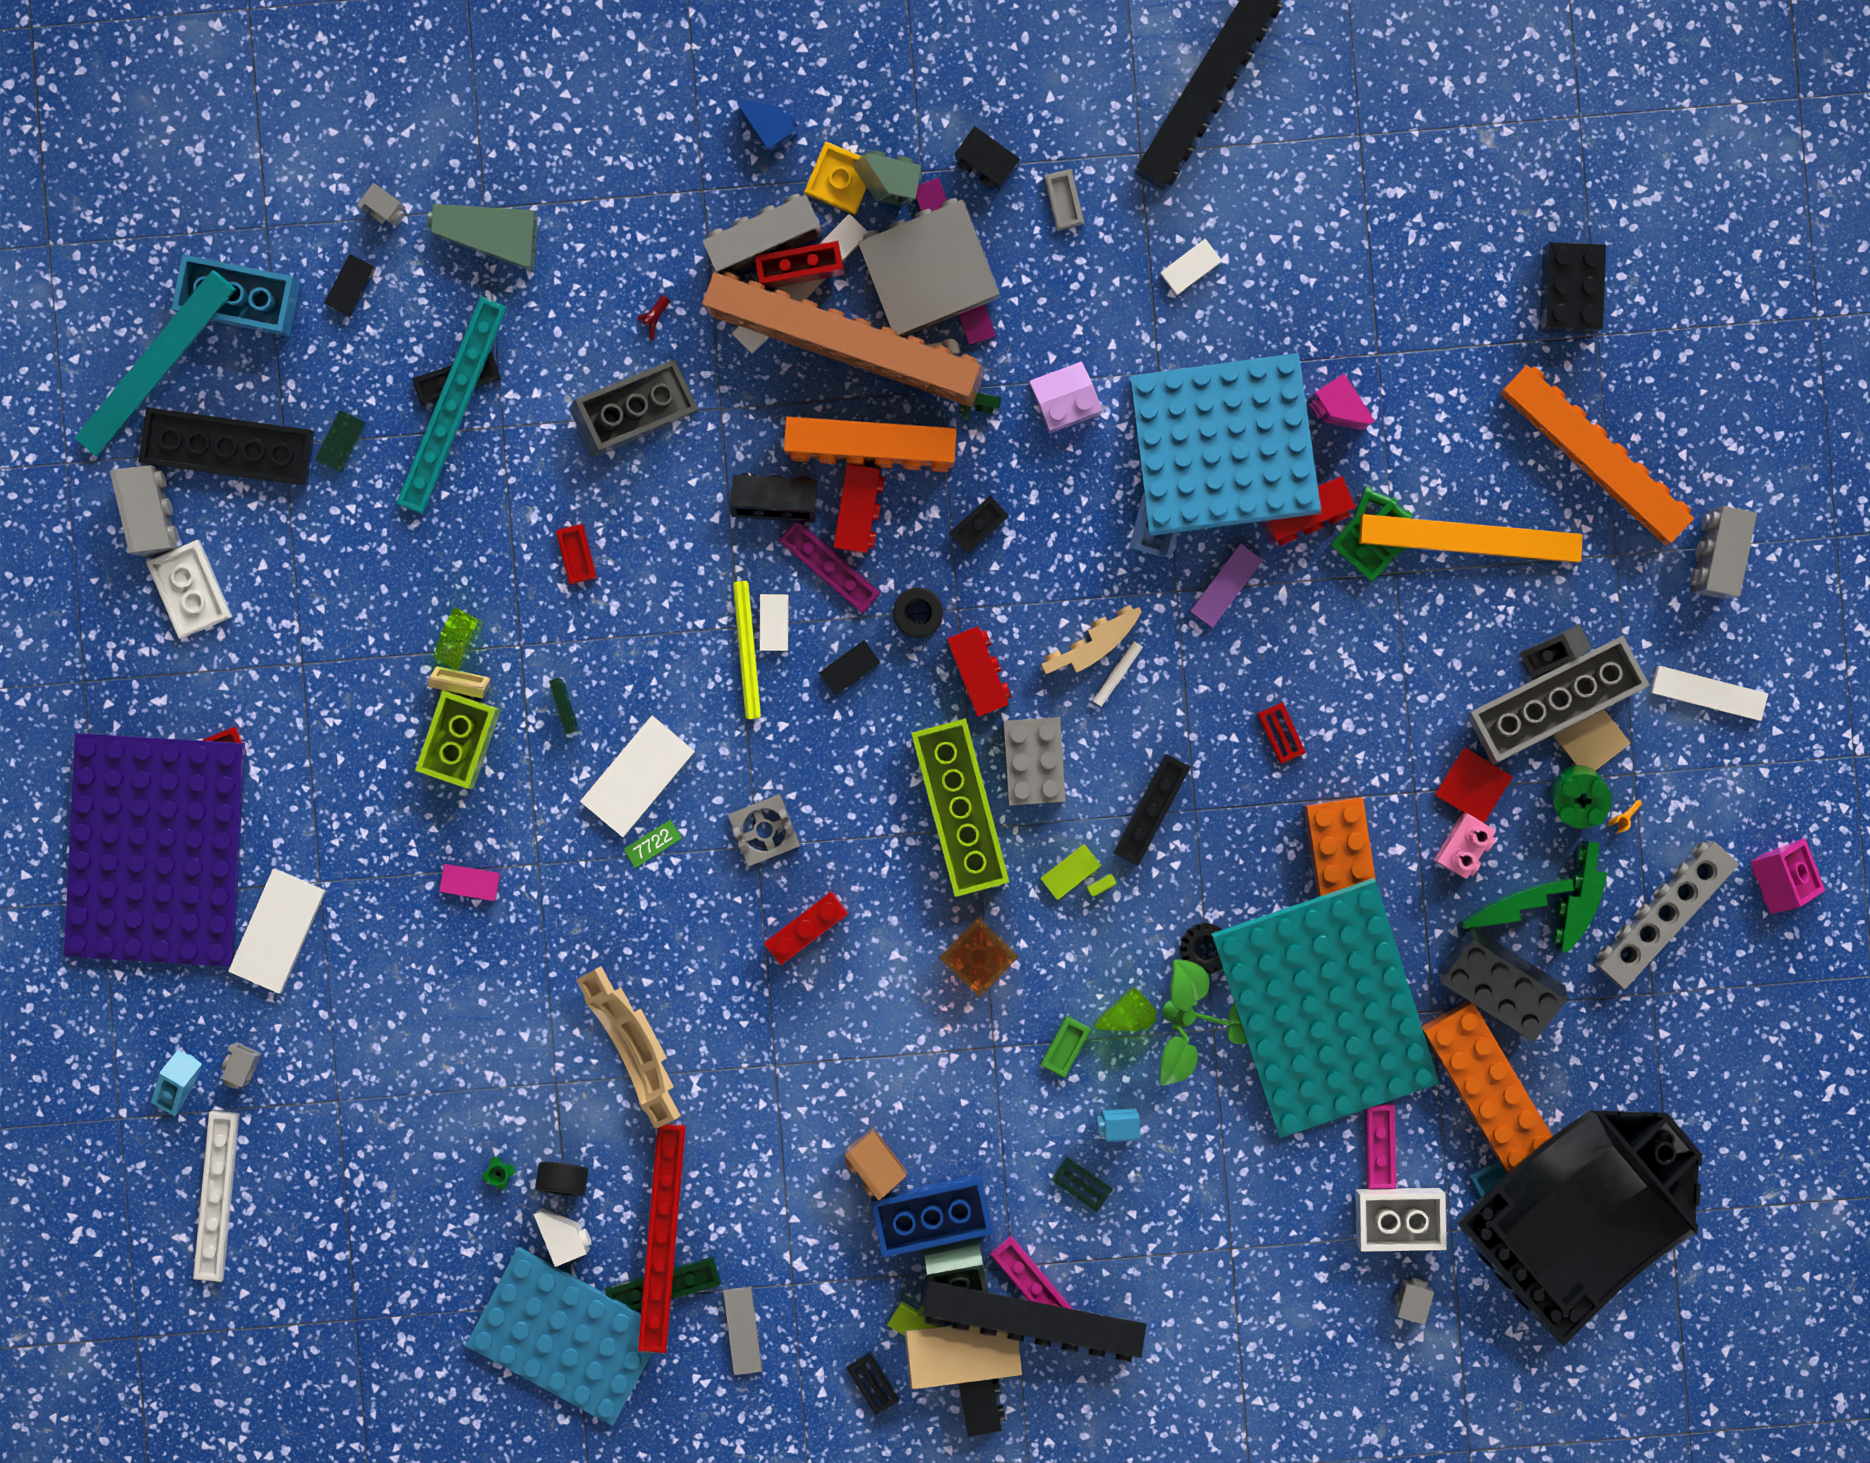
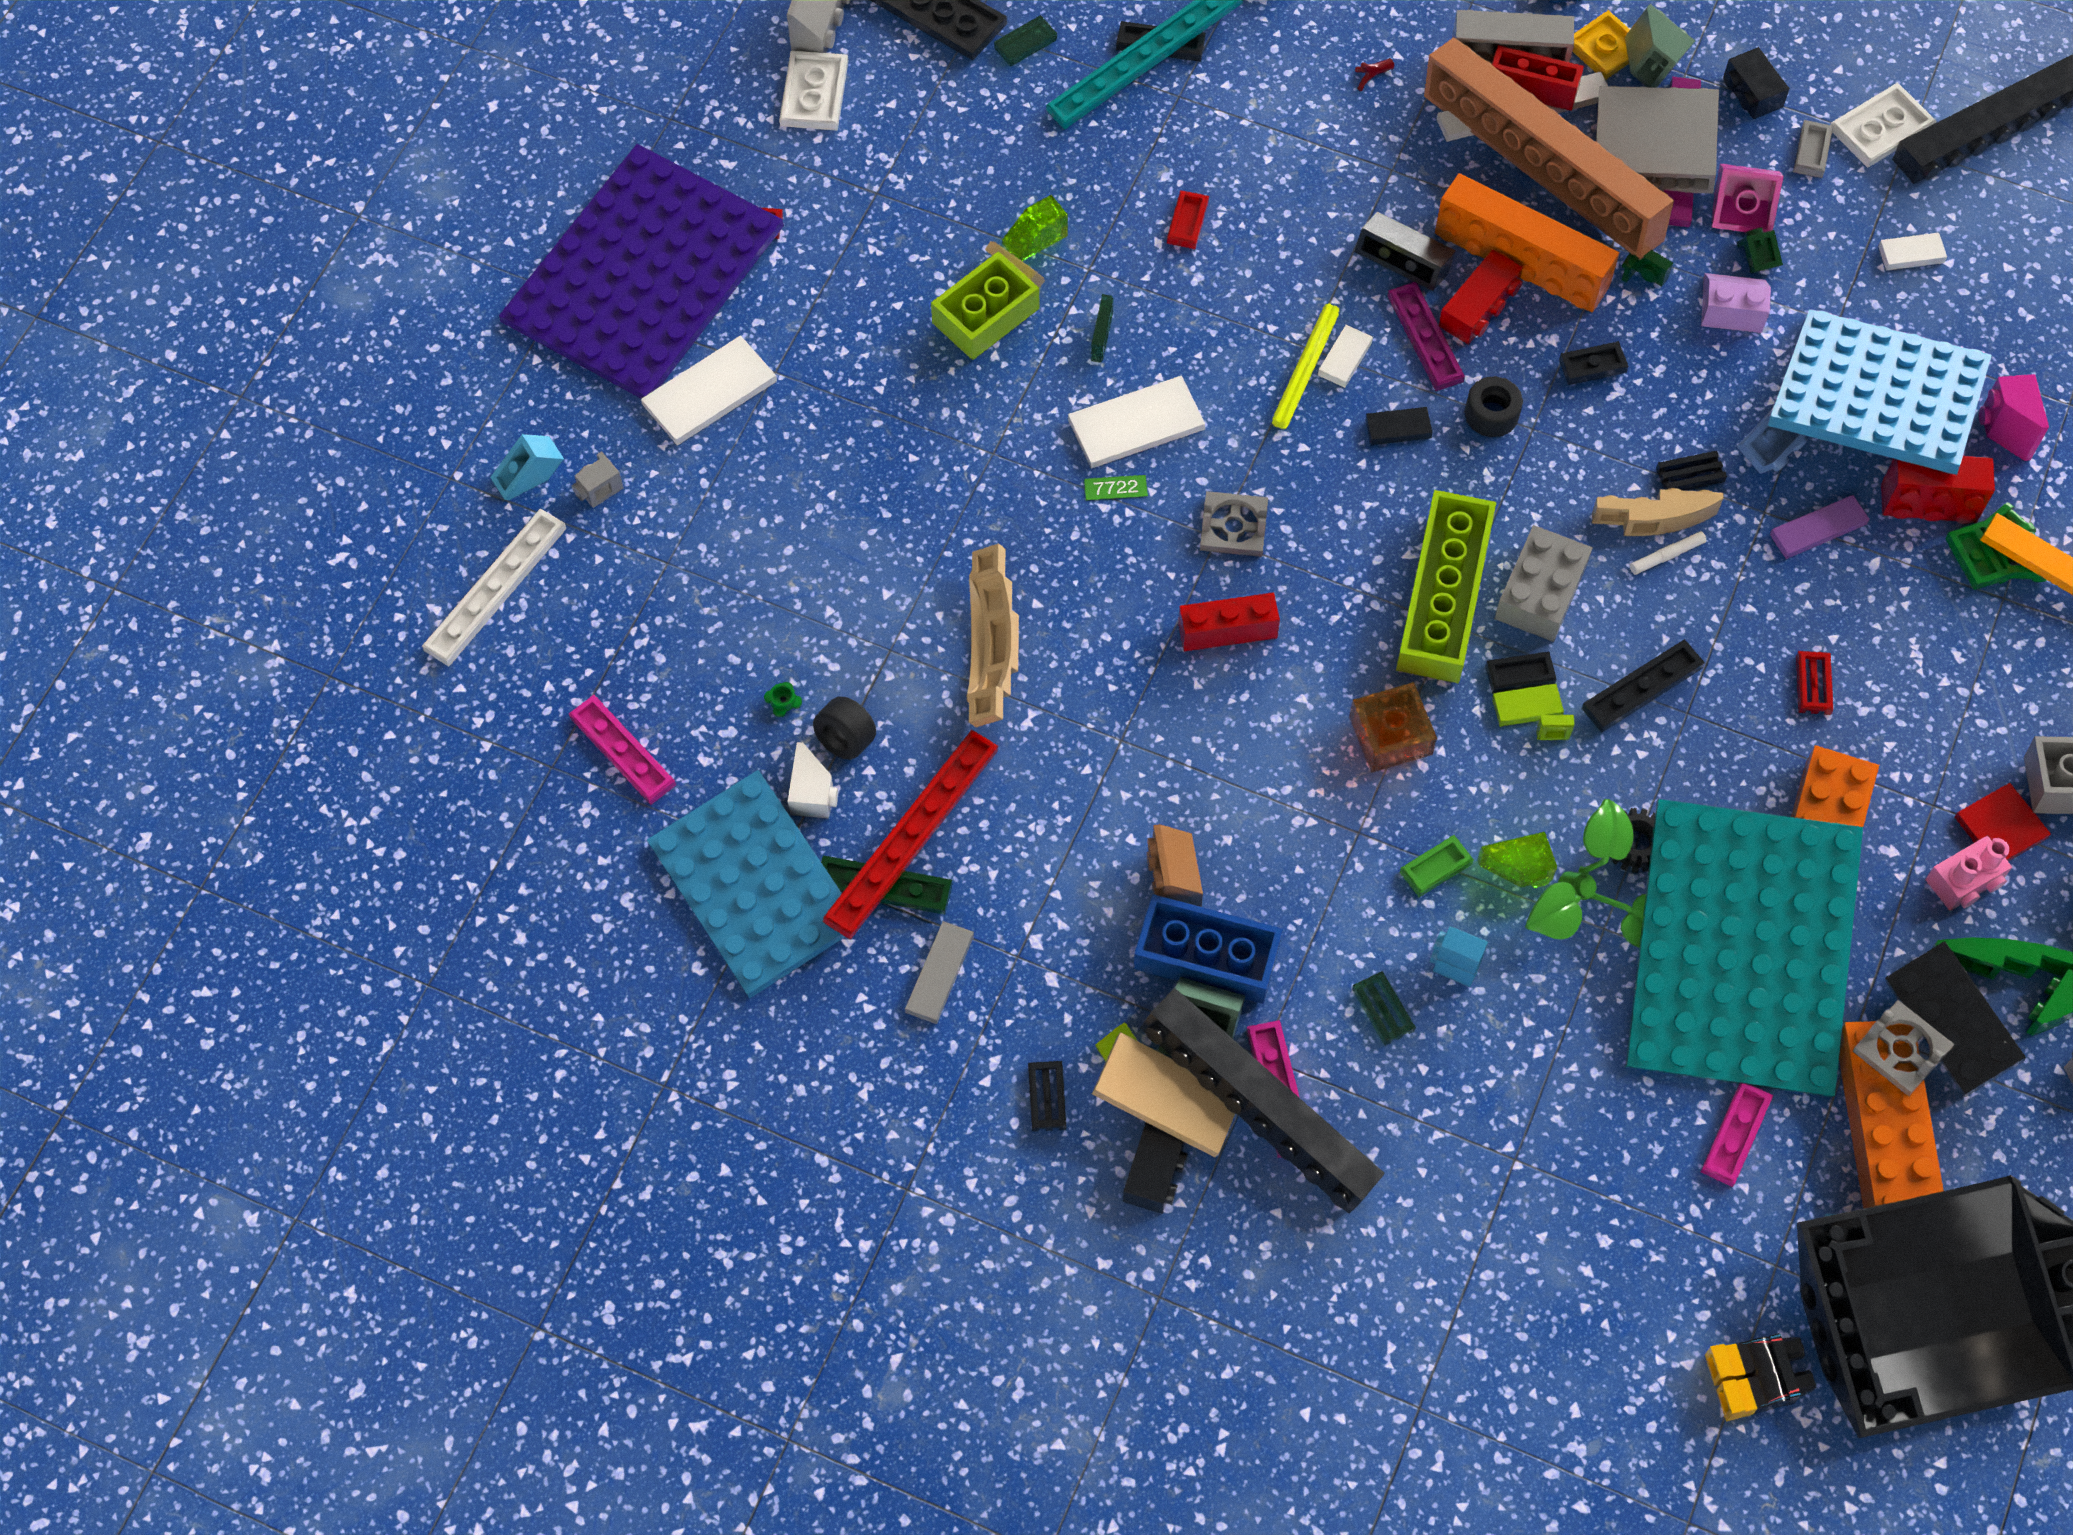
camera: 30 degrees right, 25 degrees down
(400, 1279) = (622, 749): none -> dark pink tile
(470, 882) = (918, 435): dark pink tile -> none
(632, 408) = (1308, 126): dark grey slope -> none
(979, 670) = (1528, 482): red brick -> none
(1031, 288) = (1746, 198): none -> dark pink slope
(1052, 844) = (1520, 672): none -> black tile
(1065, 336) = (1761, 250): none -> dark green bracket
(1112, 142) = (1880, 124): none -> white tile
(1120, 571) = (1689, 467): none -> black tile
(1400, 1219) = (1727, 1210): white brick -> none
(1414, 1300) = (1701, 1311): light grey brick -> none
(1471, 1328) = (1758, 1375): none -> hips
(1490, 1062) = (1905, 1081): none -> light grey piece

